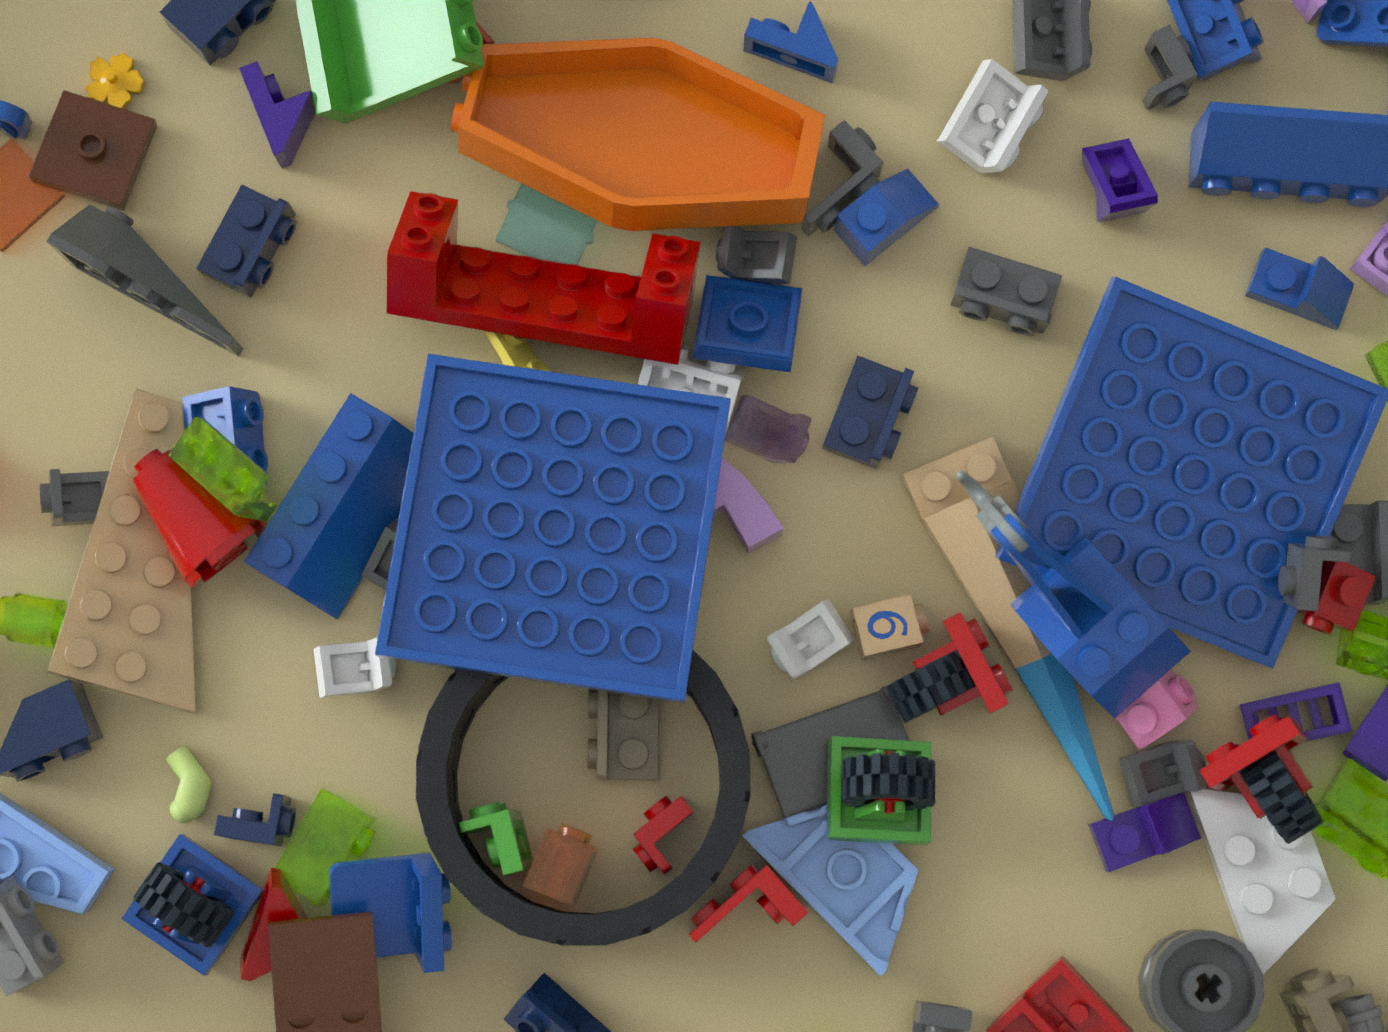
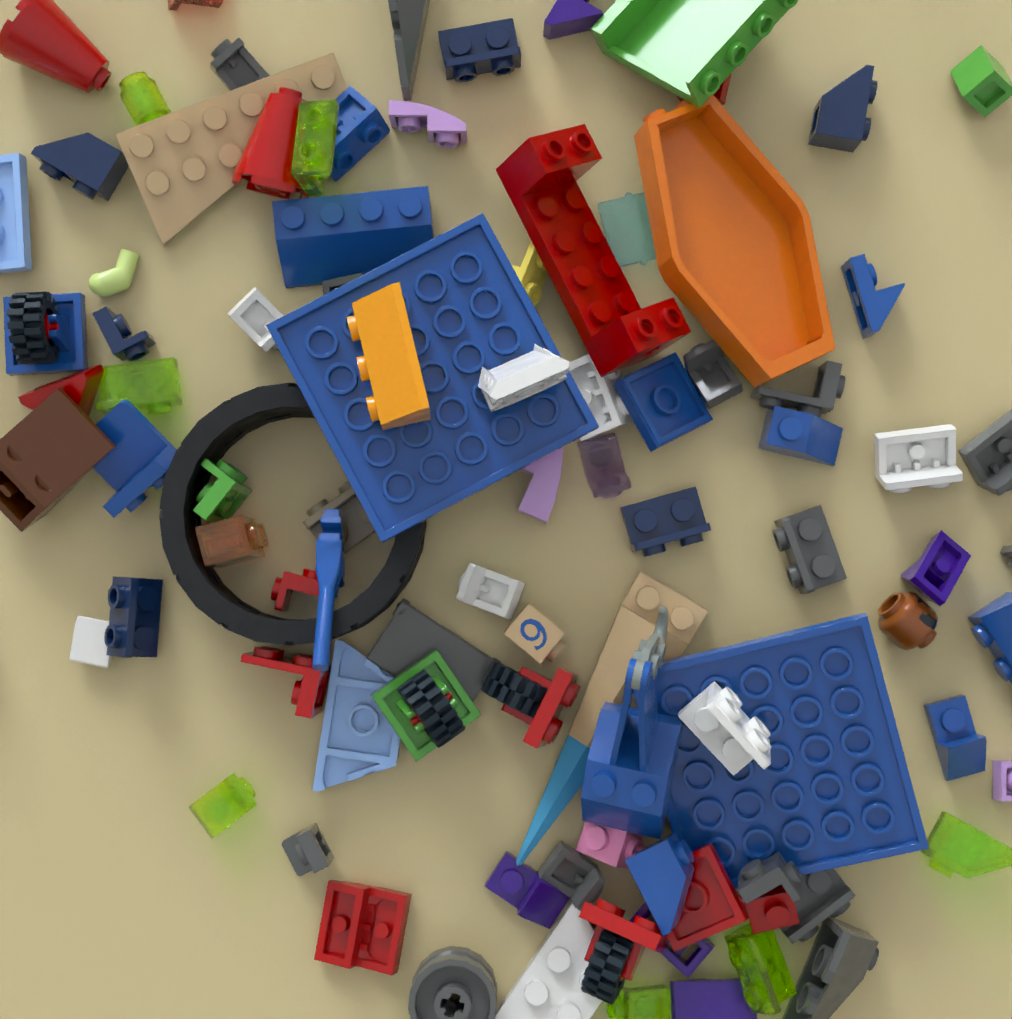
camera: 50 degrees right, 5 degrees up
(296, 336) = (441, 126): none -> lavender slope
(509, 549) = (389, 359): none -> light orange slope
(625, 434) = (522, 377): none -> white slope
(679, 790) = (330, 577): none -> blue piece
(1125, 501) = (726, 729): none -> white bracket
(1148, 247) = (907, 620): none -> dark orange head
(1232, 675) = (663, 877): none -> blue slope
(1273, 662) = (710, 901): none -> red plate

